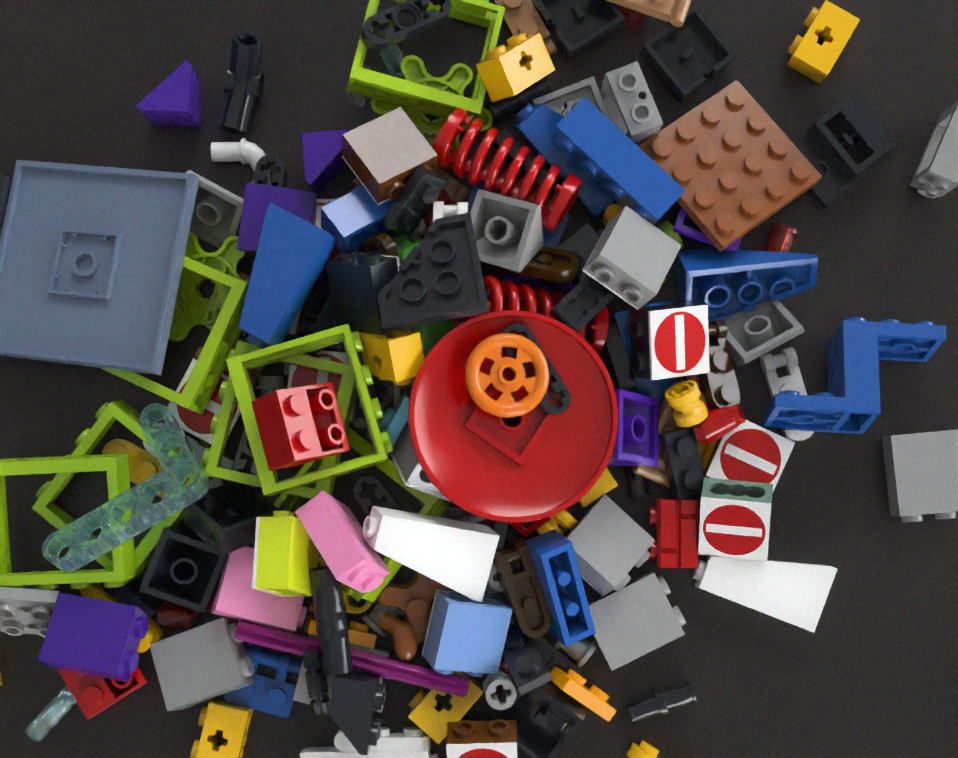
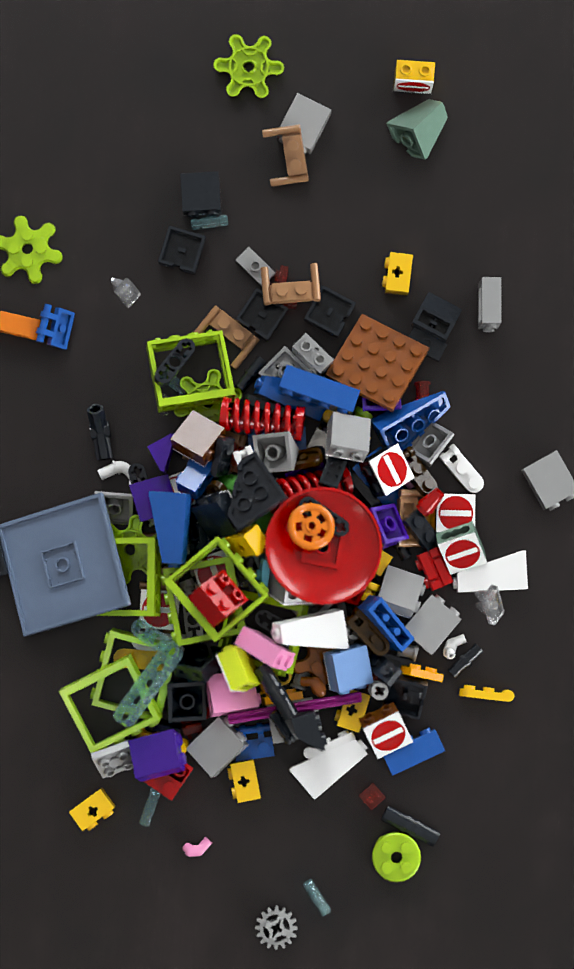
camera: 25 degrees left, 0 degrees up
(175, 100) = (70, 458): dark purple slope -> none
(515, 67) = (242, 360): yellow brick -> none
(648, 669) = (451, 646): none -> white arm
(686, 403) = (409, 499): yellow wheel -> none
(743, 631) = (491, 603): none -> clear tile
(854, 376) = (490, 447): blue bracket -> none

